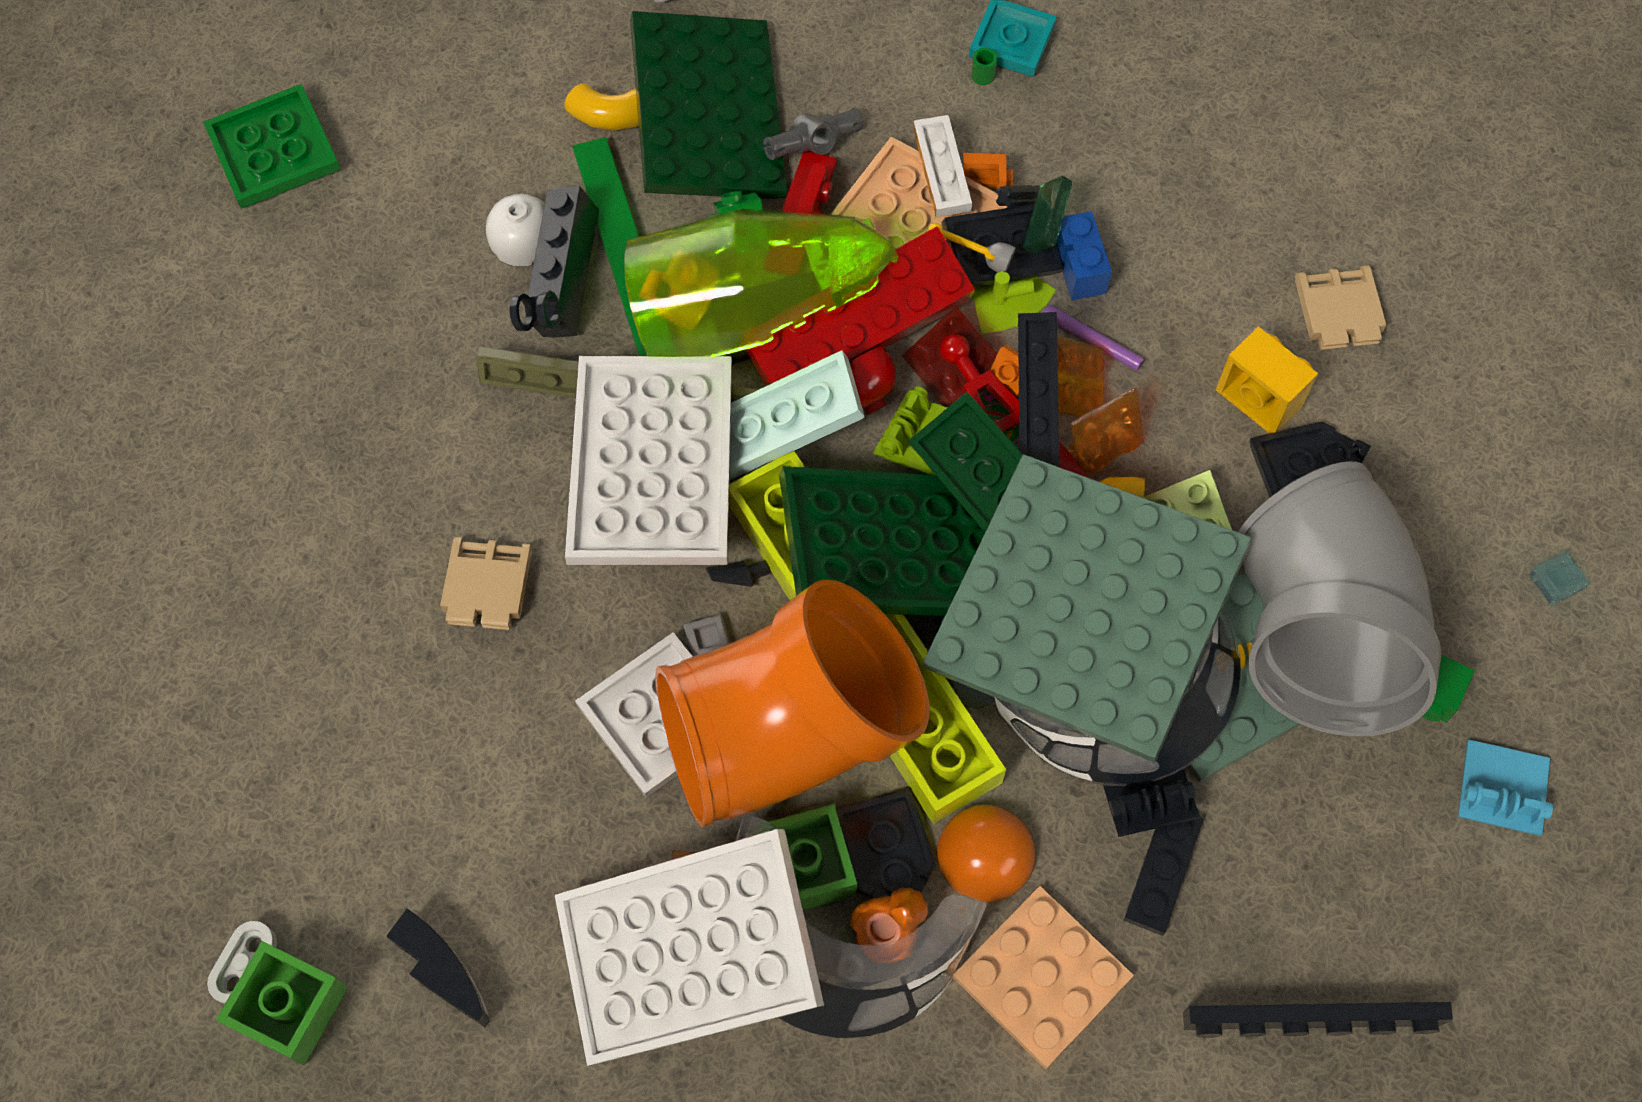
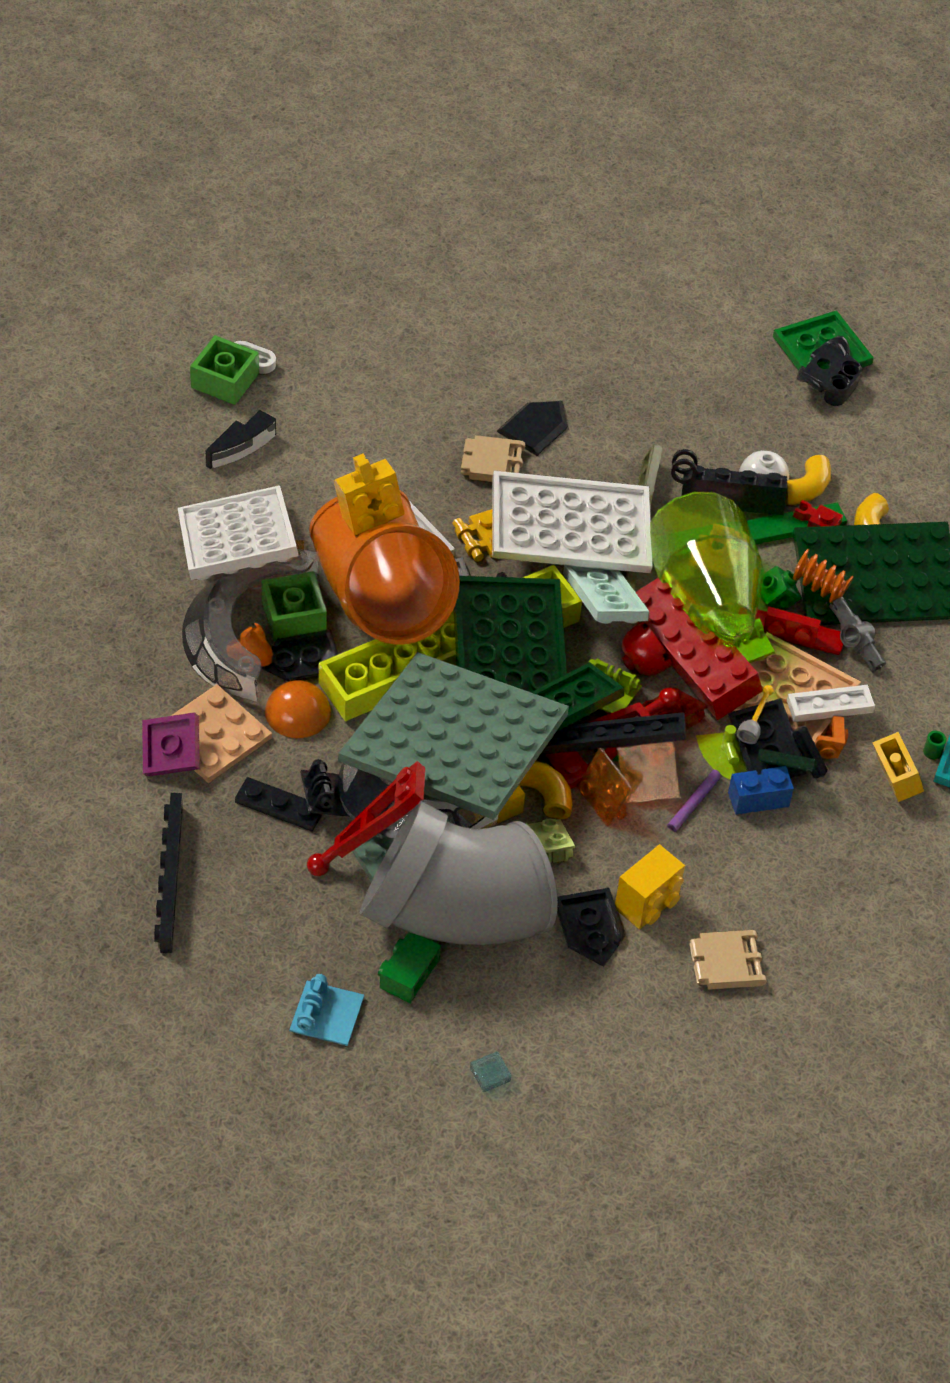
camera: 85 degrees right, 15 degrees down
(341, 119) = (840, 378): none -> black piece
(408, 526) = (536, 425): none -> black tile
(534, 167) = (812, 483): none -> yellow cylinder
(609, 161) = (817, 517): none -> red plate
(630, 587) = (482, 527): none -> yellow plate
(737, 691) = (369, 495): none -> yellow hinge
(740, 154) = (821, 577): none -> orange piece
(1032, 101) = (898, 766): none -> yellow brick
(1093, 1032) = (171, 744): none -> magenta plate
(1237, 648) = (407, 792): none -> red plate

